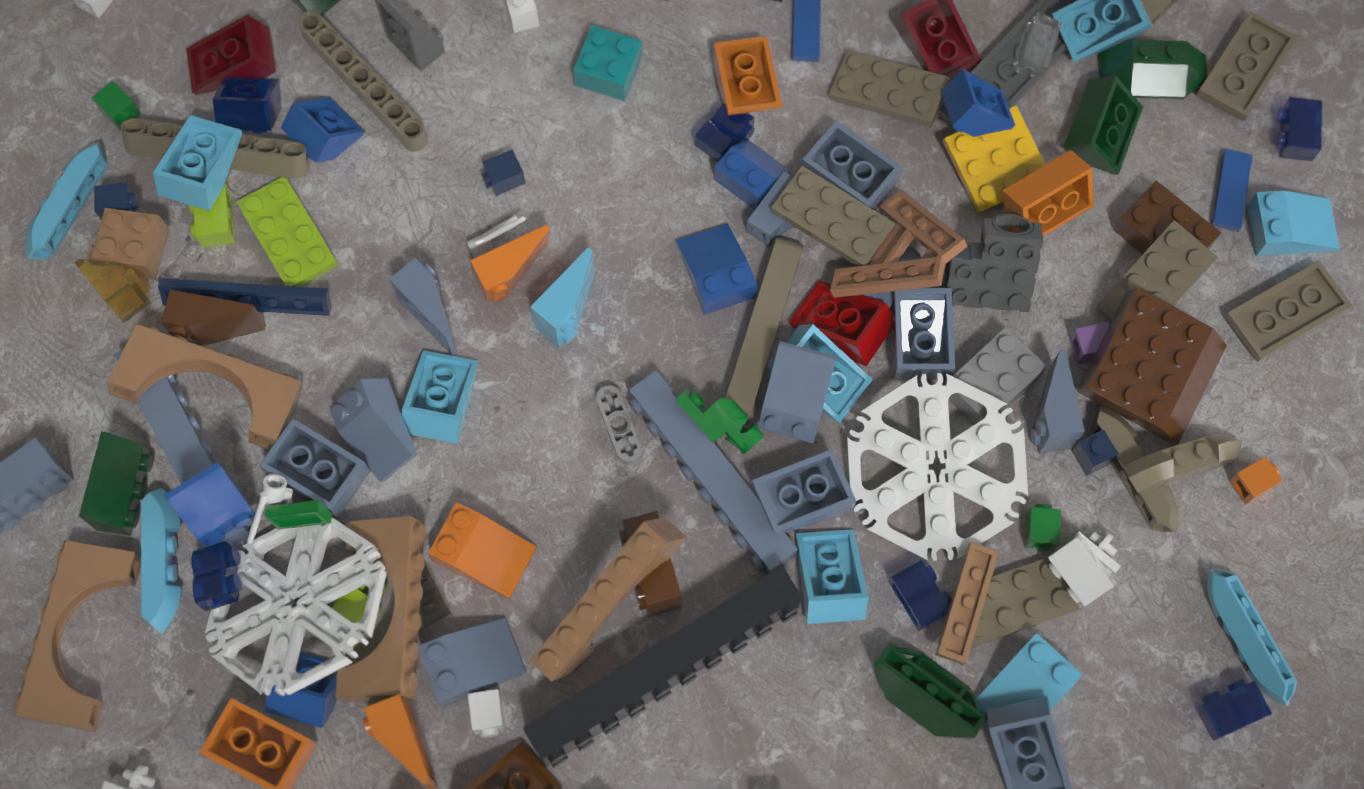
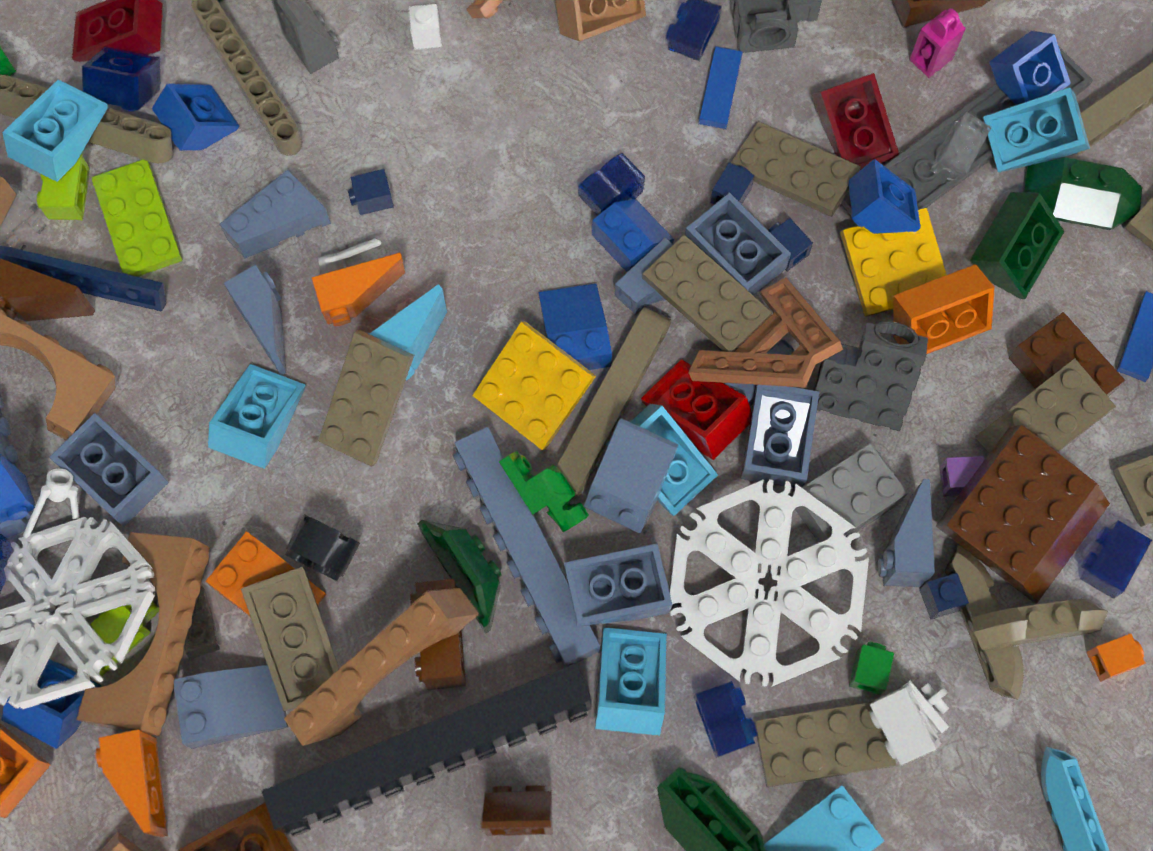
camera: 10 degrees right, 0 degrees up
(298, 514) = (78, 516): green tile -> none
(374, 426) = (178, 435): sand blue slope -> none
(417, 209) = (274, 215): none -> sand blue wedge
(486, 713) = (234, 764): white brick -> none
(516, 589) = (291, 635): none -> dark tan plate
(527, 504) = (323, 546): none -> black brick
(540, 362) = (365, 397): none -> dark tan plate
(608, 63) = (503, 95): teal brick -> none
(632, 440) = (426, 458): light grey beam -> none
(657, 492) = (465, 564): none -> dark green wedge
(690, 326) = (533, 385): none -> yellow plate
(746, 75) = (644, 130): orange slope -> none
(754, 709) = (517, 812): none -> reddish brown slope
(836, 108) = (733, 180): none -> dark blue brick
(901, 154) = (793, 240): none -> dark blue brick
(967, 603) = (772, 738): medium nougat plate -> none
(1239, 394) = (1115, 558): none -> clear blue brick

